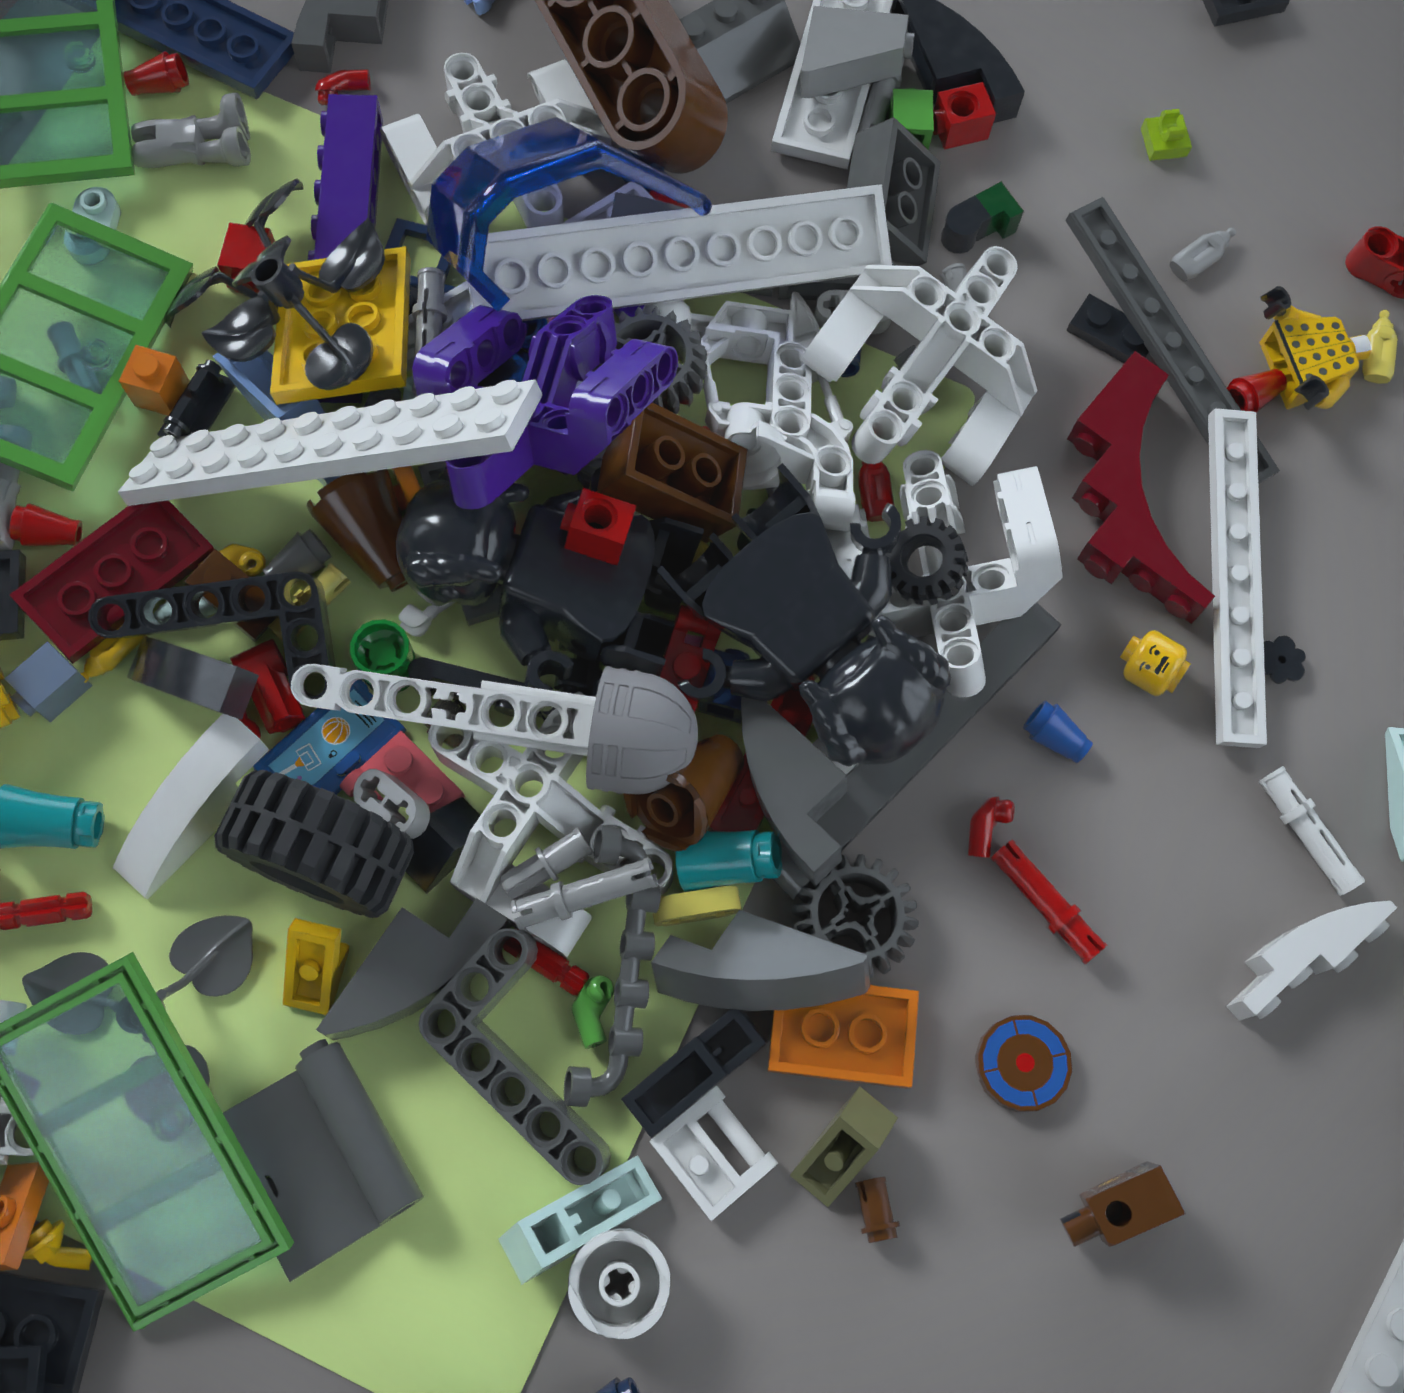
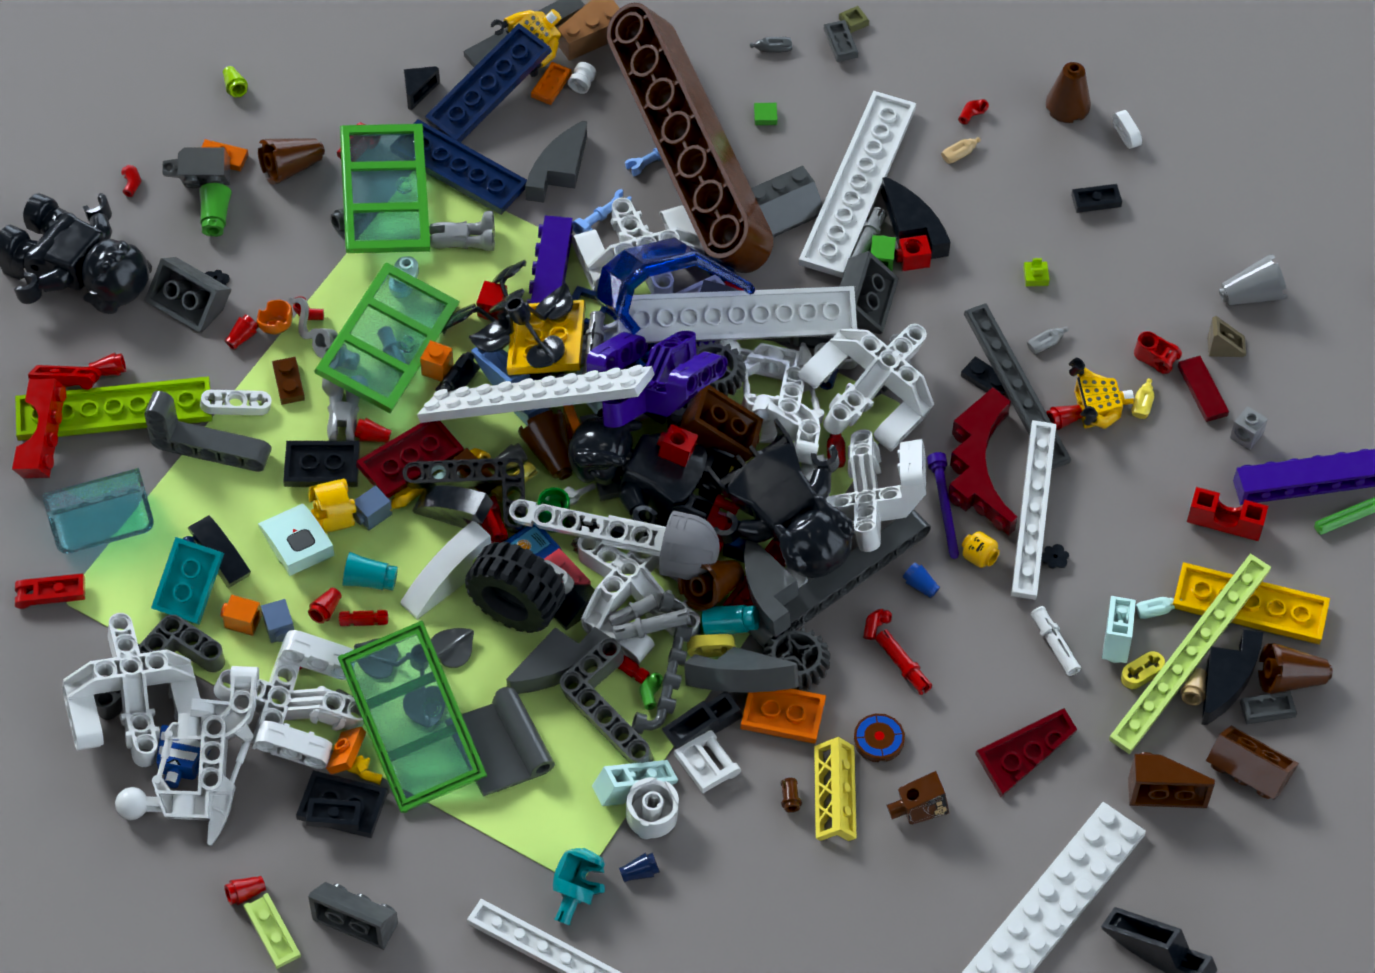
camera: 10 degrees right, 15 degrees down
(158, 75) = (447, 197): red cone -> none
(313, 966) = (505, 652): yellow slope -> none
(342, 81) = (550, 207): red arm -> none
(426, 86) = (599, 214): none -> light blue piece
(844, 1146) = (776, 763): olive slope -> none
(853, 49) = (850, 212): light grey slope -> none
(945, 578) = (859, 490): black tyre -> none
(972, 1196) = (840, 786): none -> light yellow fence
(979, 217) = (916, 310): leg -> none
(1058, 500) = (937, 464): none -> dark purple piece
(1289, 1064) = (1020, 752): none -> dark red wing
(1311, 947) = (1049, 692): white slope -> none

